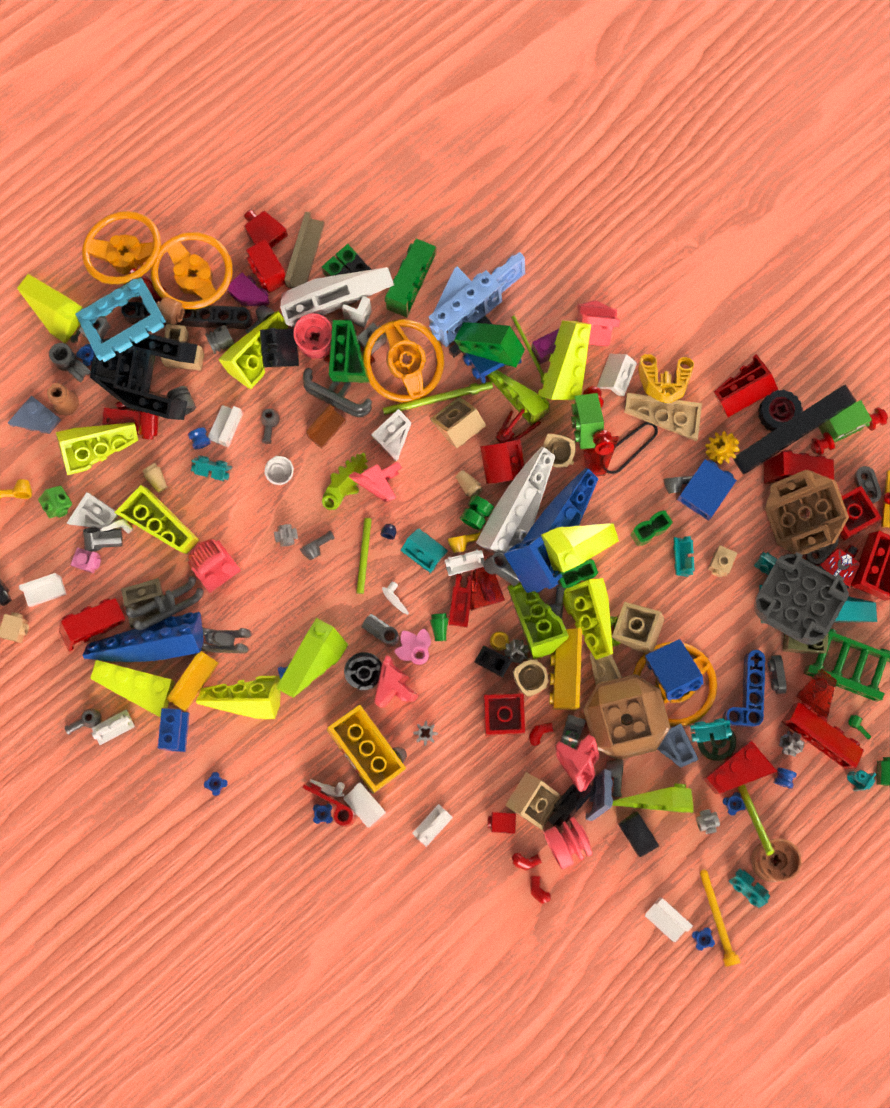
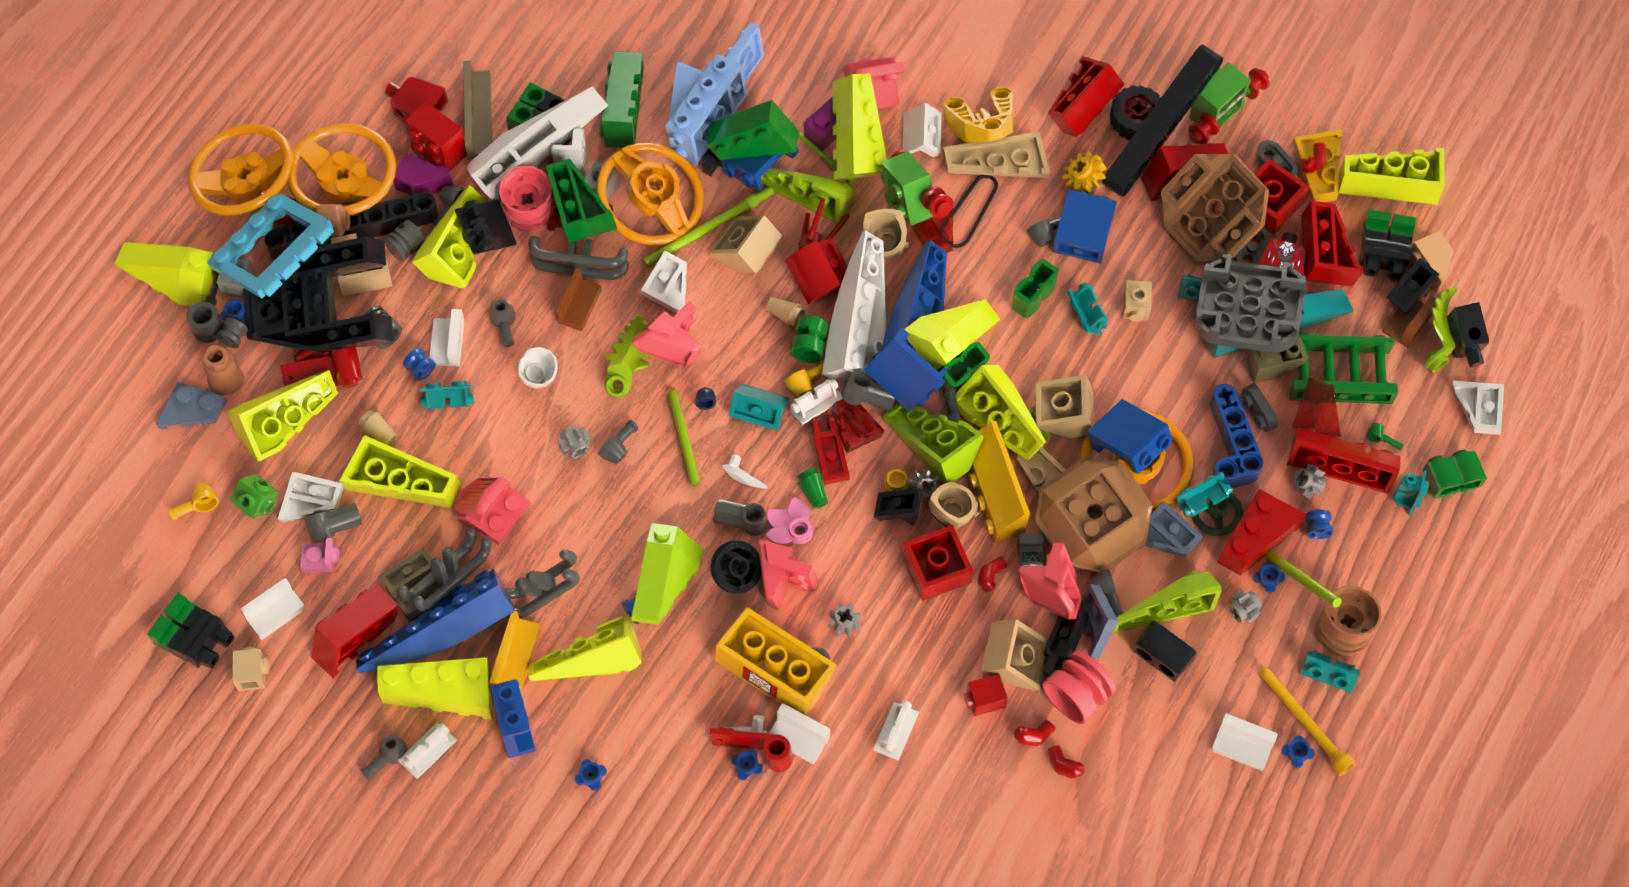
camera: 20 degrees left, 15 degrees down
(120, 523) = (348, 498): white bar -> none

